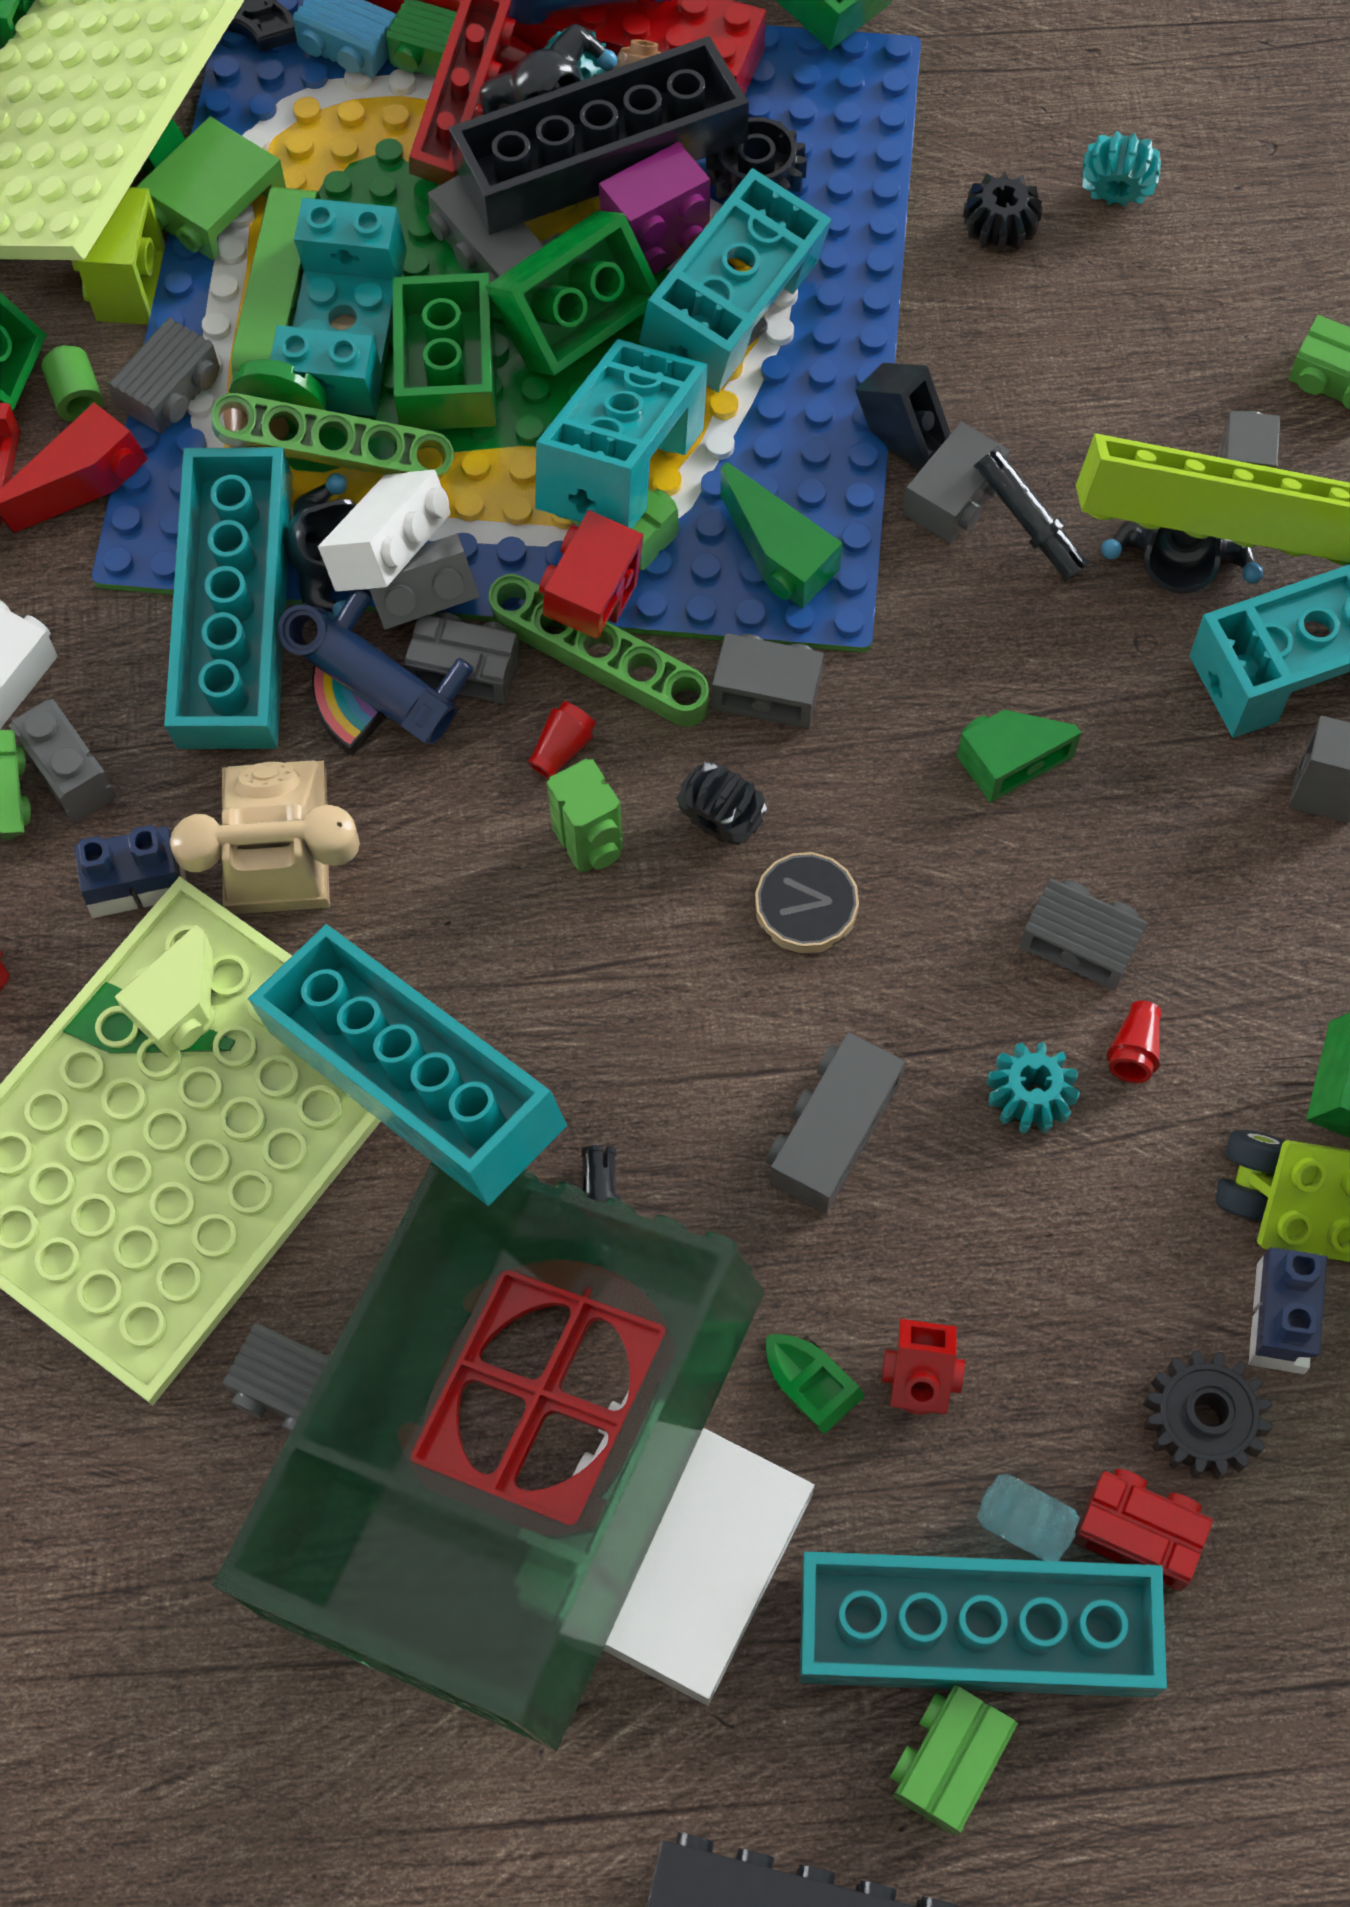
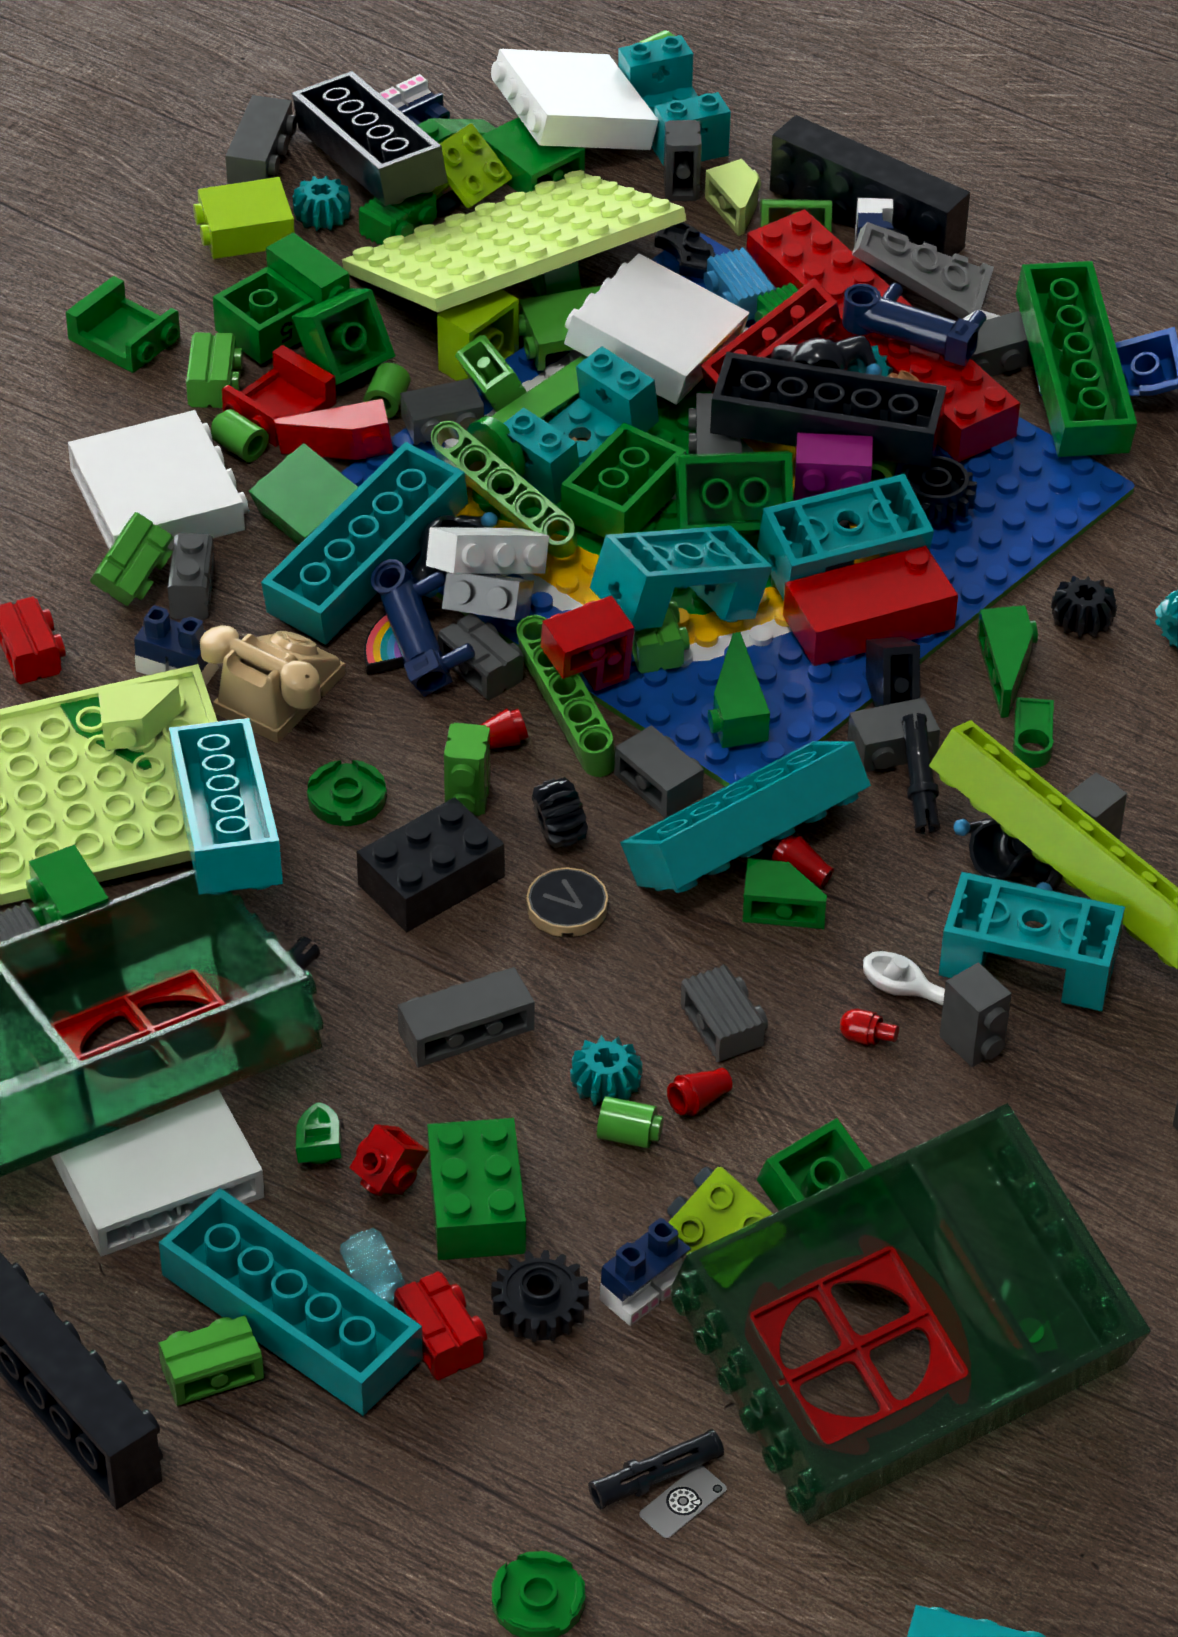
camera: 35 degrees right, 20 degrees down
(110, 580) = (301, 493): none -> green brick
(187, 298) = (490, 373): none -> bright green brick
(303, 1290) = (62, 885): none -> green brick
(315, 133) = (656, 324): none -> white brick
(461, 922) = (346, 793): none -> green tile
(639, 957) = (430, 864): none -> black brick
(814, 344) = (869, 600): none -> red brick
(916, 683) = (746, 815): none -> teal brick
(975, 310) = (1006, 646): none -> green slope
(991, 692) = (804, 859): none -> red cone
(1036, 1332) = (476, 1189): none -> green brick
(1068, 379) = (1033, 725): none -> green piece
(1108, 1134) = (629, 1122): none -> bright green brick
(1207, 767) = (899, 976): none -> white piece
(1224, 849) = (866, 1027): none -> red cylinder

